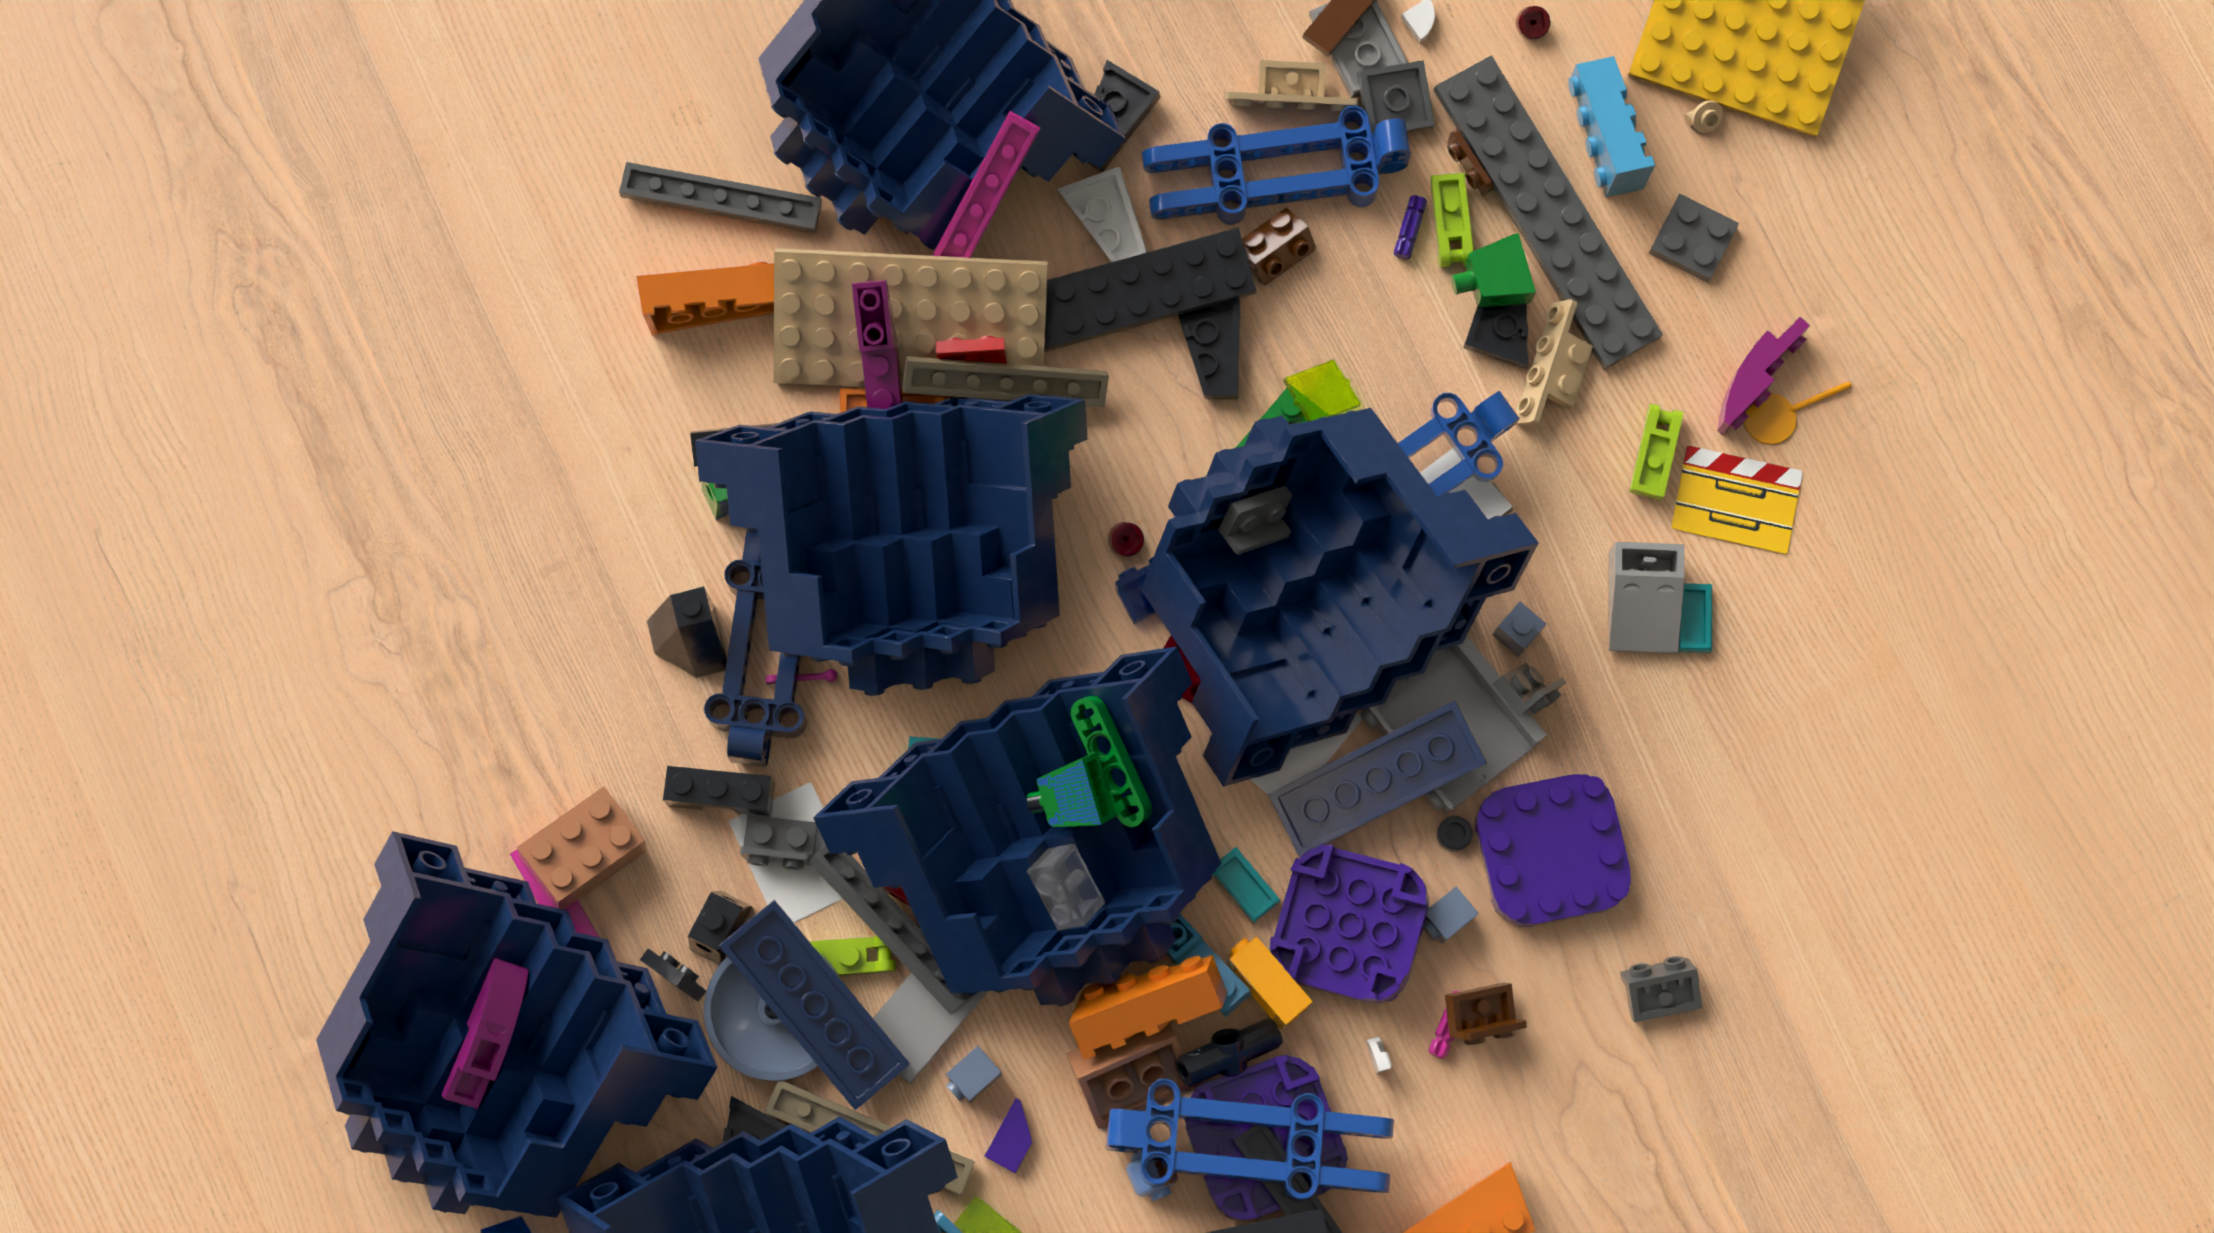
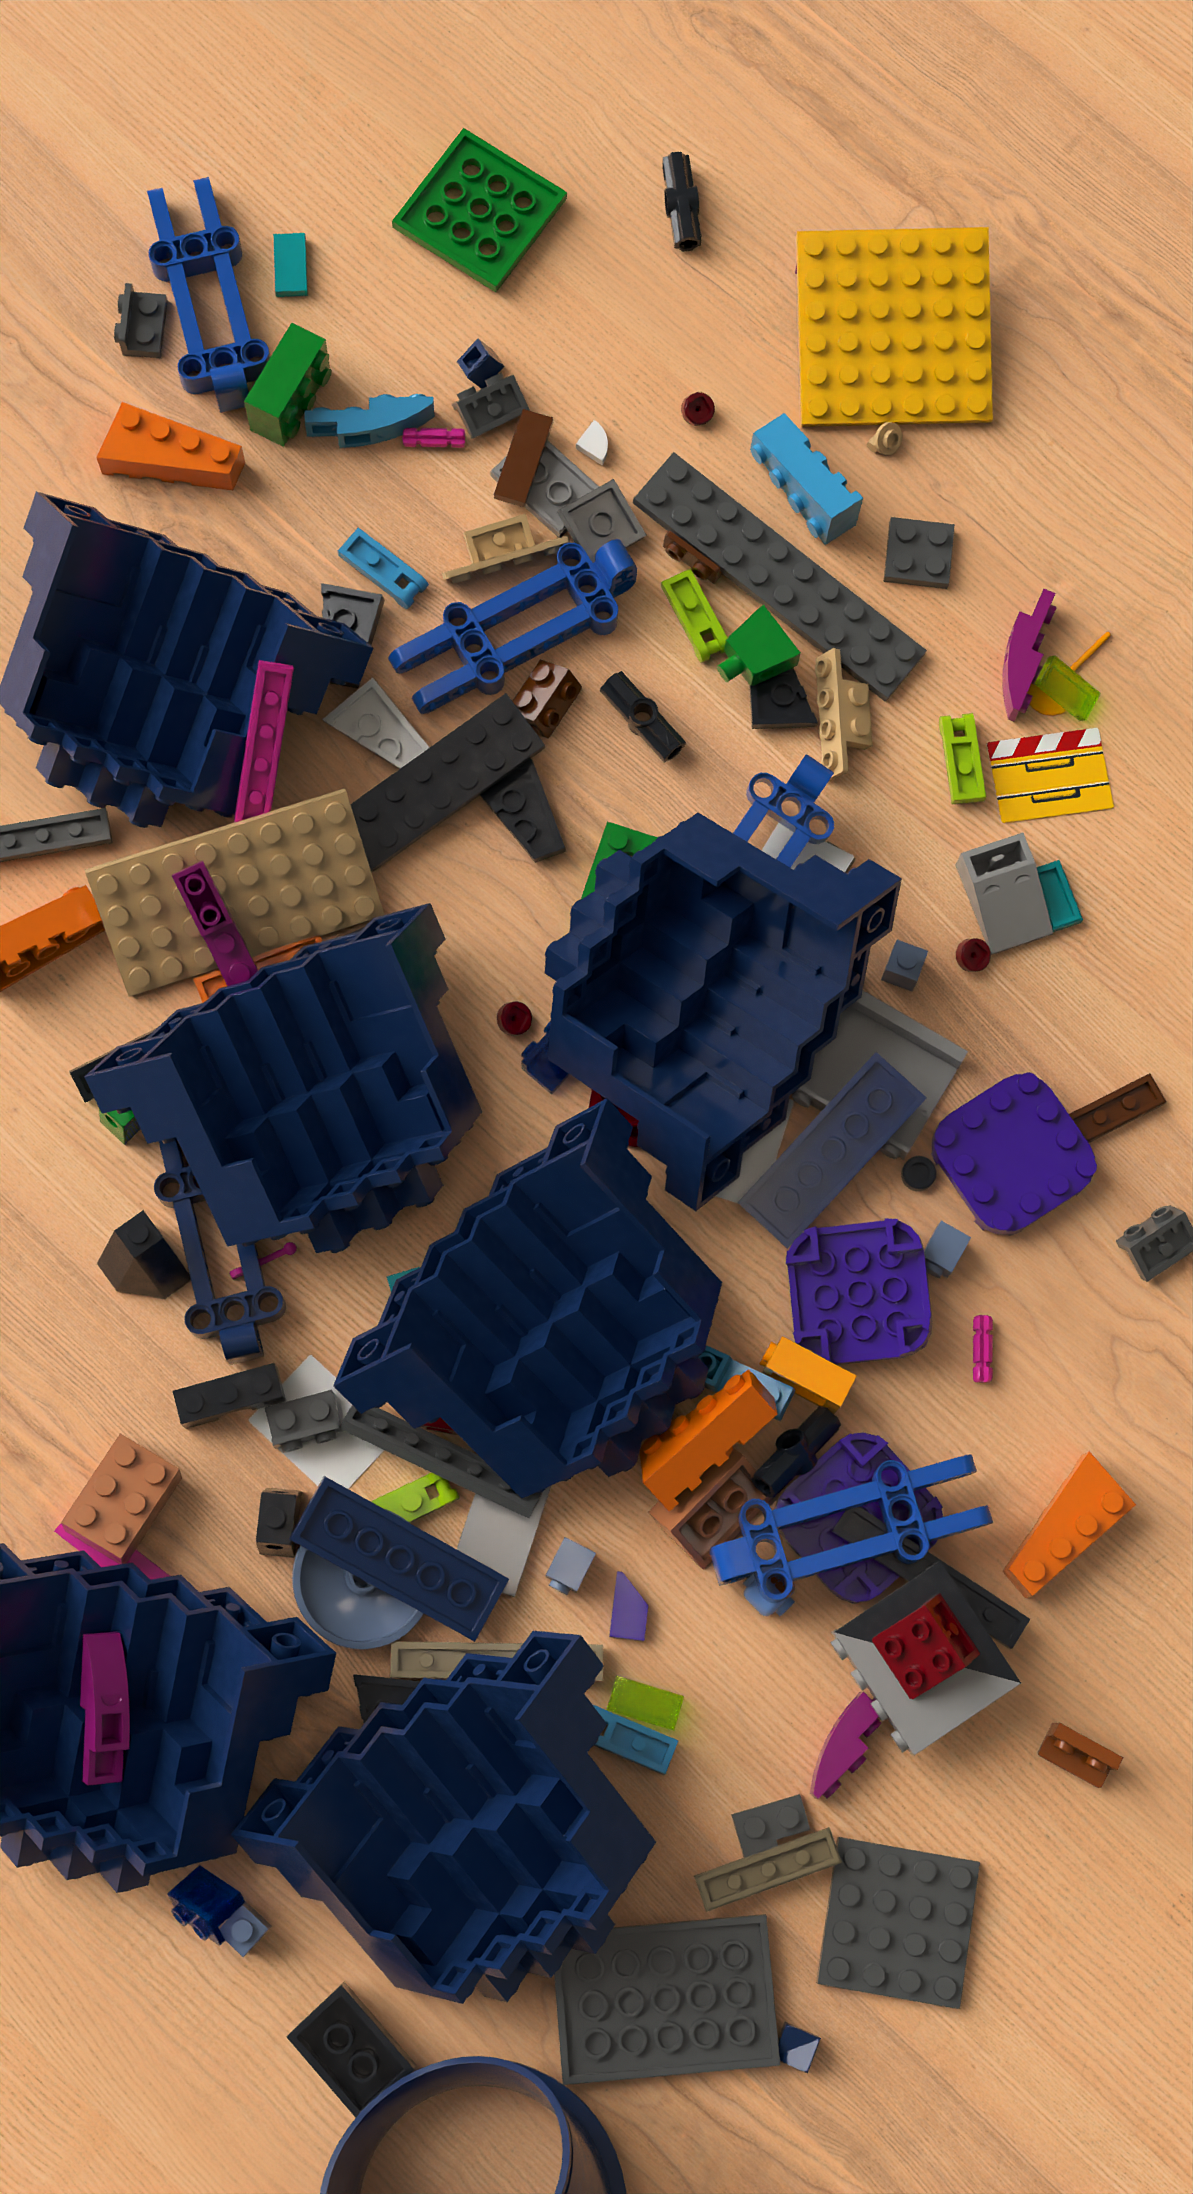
camera: 25 degrees left, 0 degrees up
(667, 967) = (265, 1583): black plate -> none
(981, 350) = (306, 900): red plate -> none
(1002, 380) = (343, 914): dark tan plate -> none
(1066, 886) = (589, 1358): clear brick -> none
(1074, 794) = (565, 1271): green torso -> none
(1117, 758) = (583, 1231): green beam -> none
(1170, 65) = (382, 567): none -> dark azure plate
(1245, 885) = (749, 1294): teal tile -> none
(1256, 520) = (633, 955): dark grey bracket -> none
(1322, 391) = (640, 816): clear neon green piece -> none
(1367, 316) = (630, 701): none -> black piece
(1379, 1057) = (934, 1405): white tile -> none
(1410, 227) = (660, 636): dark purple axle -> none
(1482, 1013) = (1010, 1327): reddish brown bracket -> none
(1525, 689) = (933, 1019): dark grey bracket -> none
(1590, 644) = (973, 955): none -> dark red tile
(1673, 845) = (1118, 1108): none -> reddish brown tile
(1785, 421) = (1067, 688): none -> clear neon green tile

